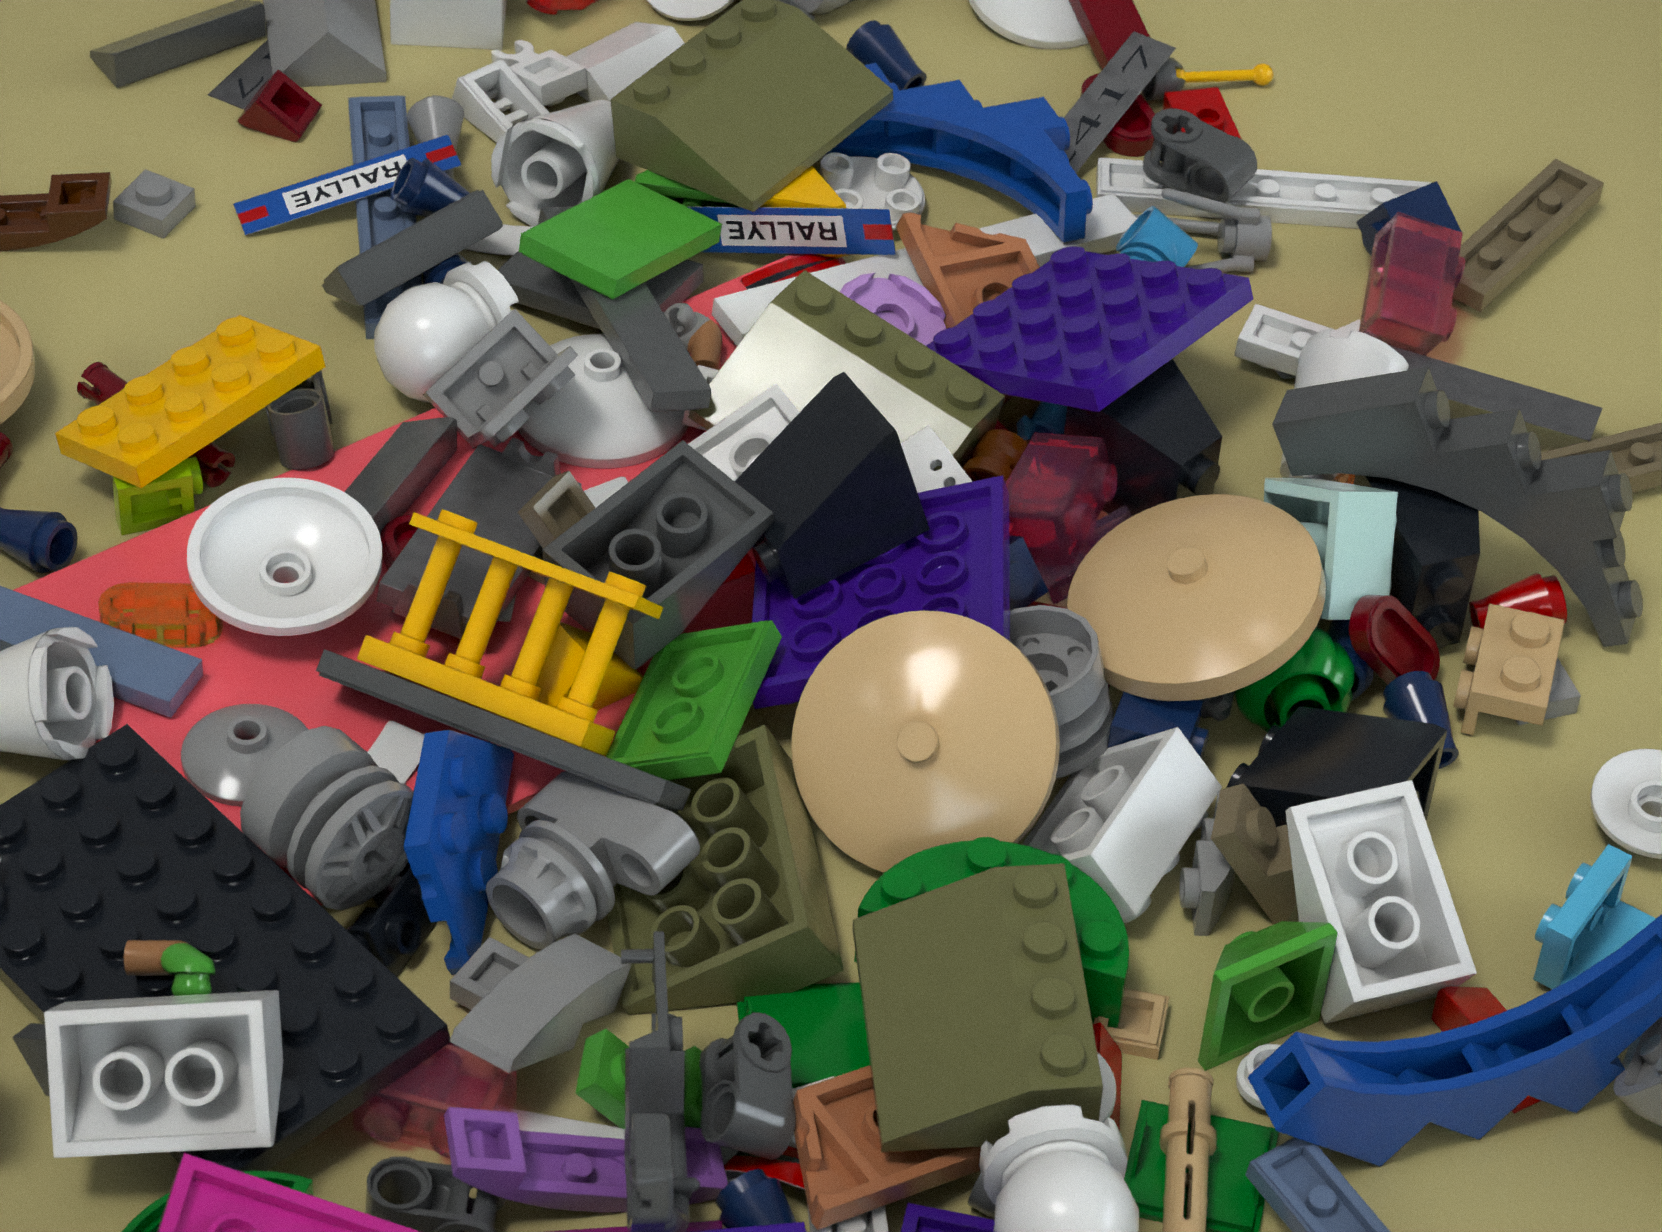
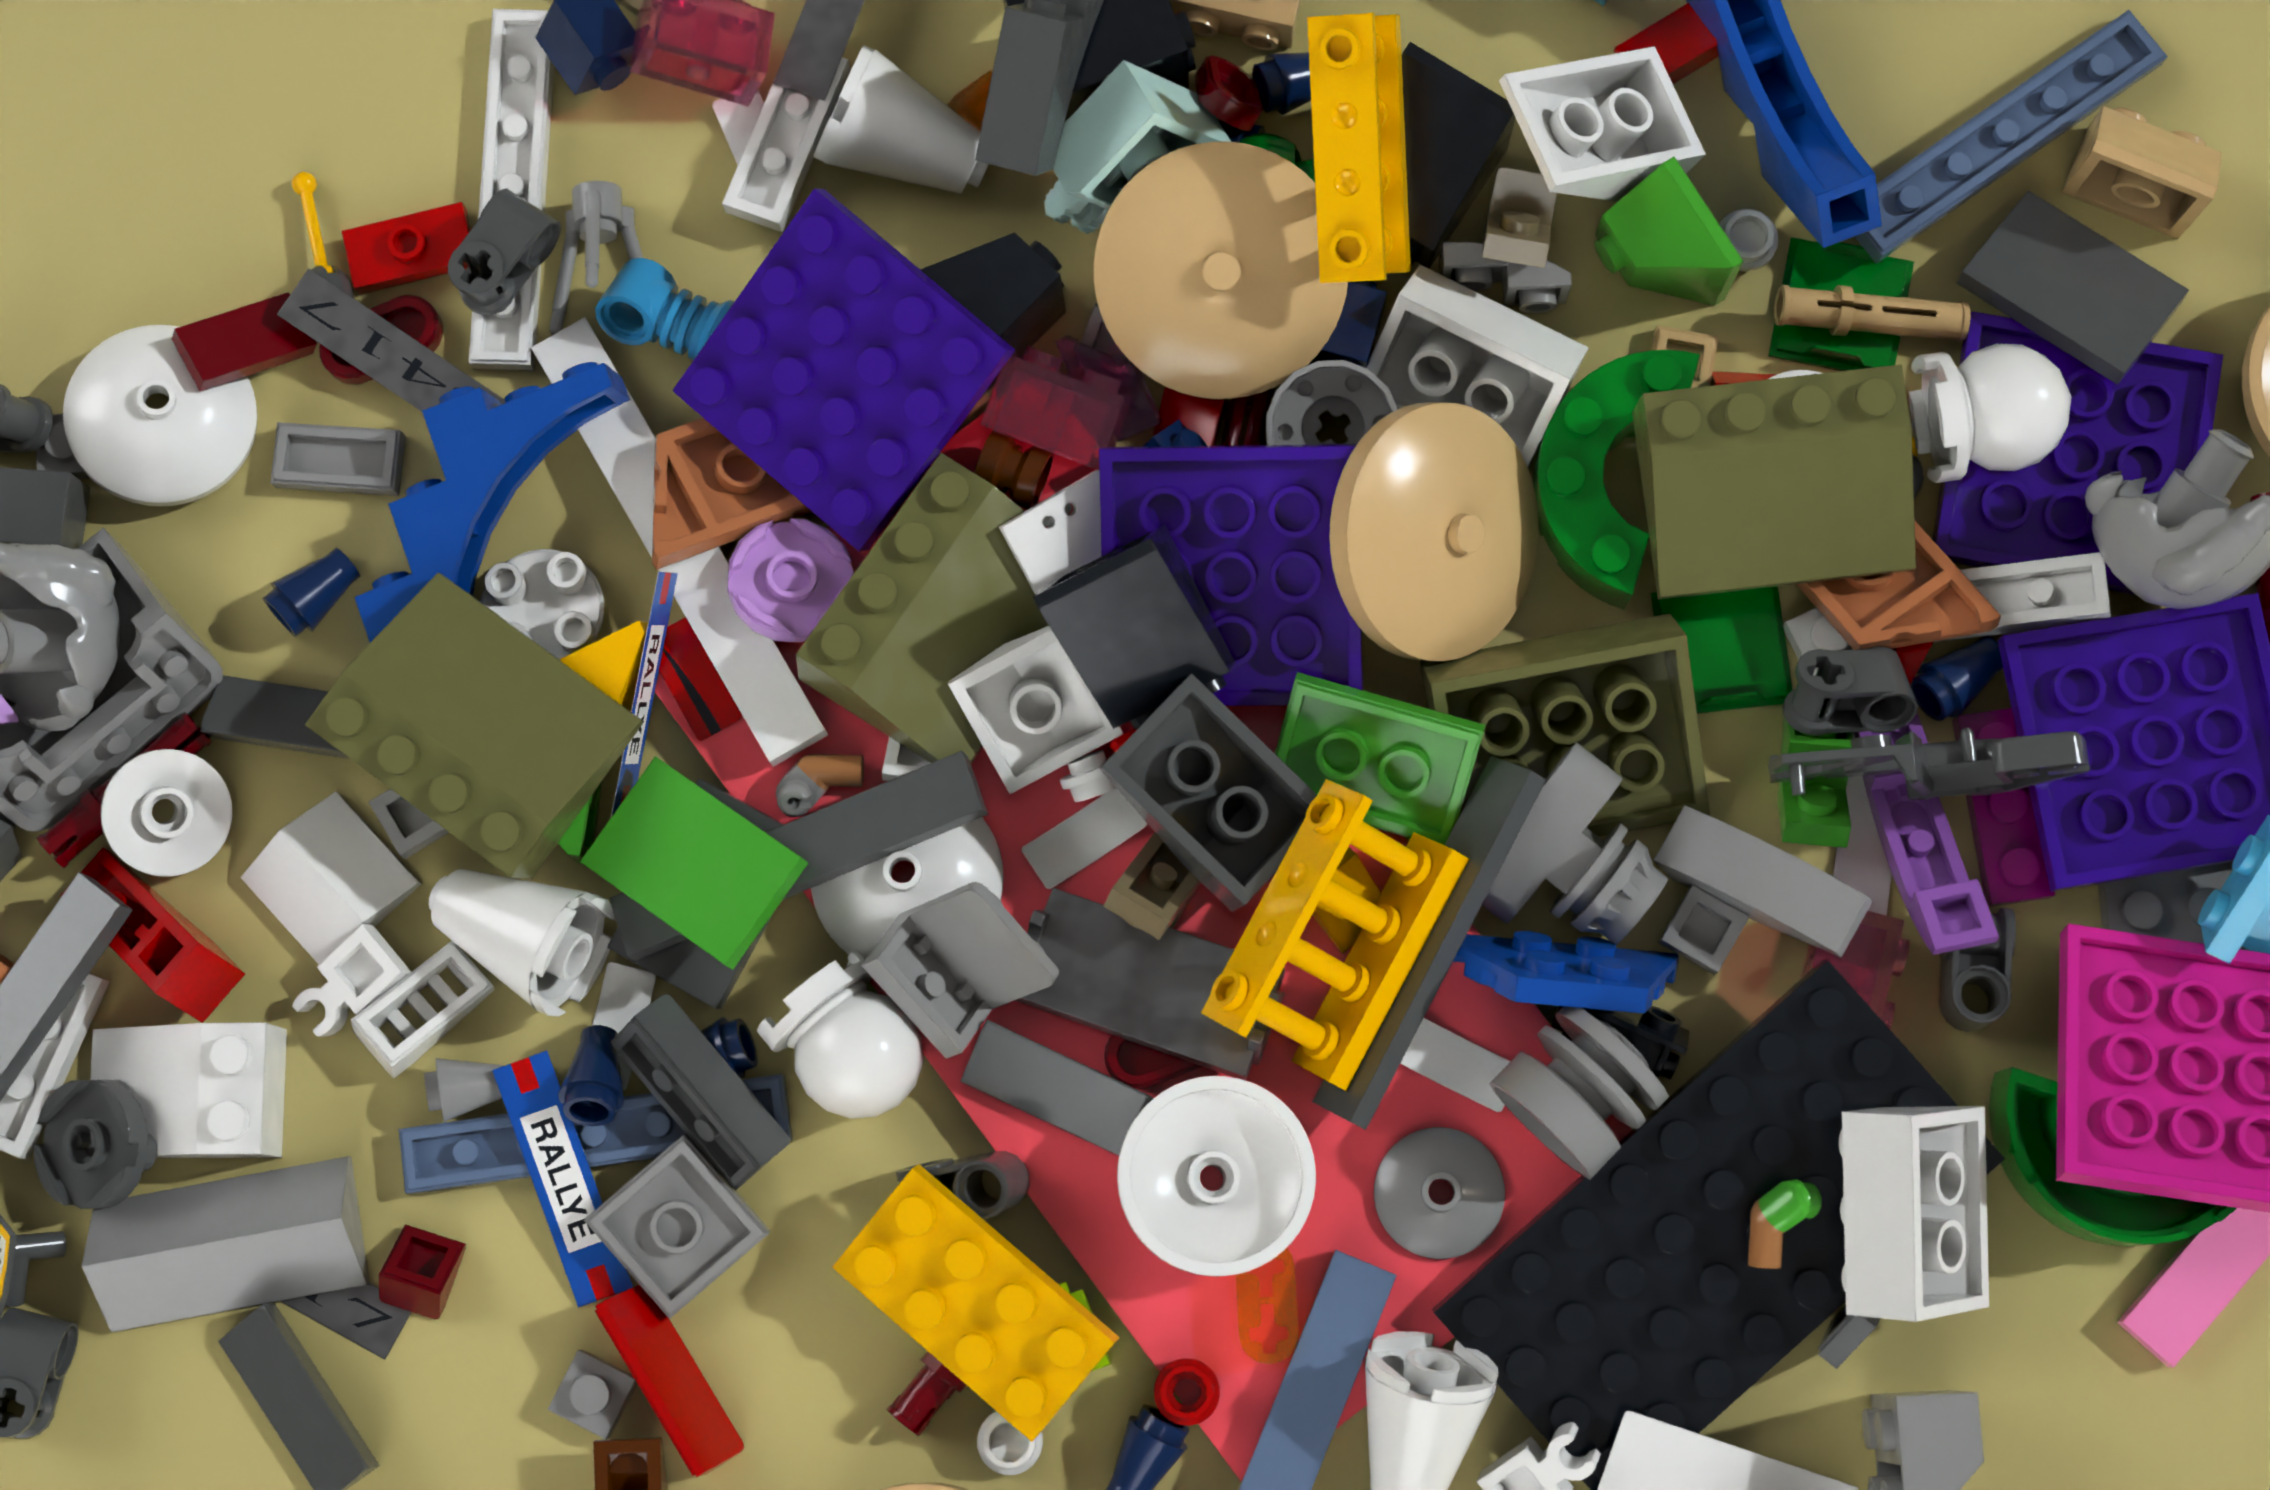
camera: 80 degrees left, 35 degrees up
(46, 454) = (1005, 1447): none -> white plate
(82, 551) = (1174, 1410): none -> red plate
(156, 238) = (670, 1380): none -> red slope
(292, 249) = (677, 1225): none -> light grey tile
(1009, 73) = (338, 459): none -> light grey tile
(1336, 714) = (1359, 146): none -> yellow fence

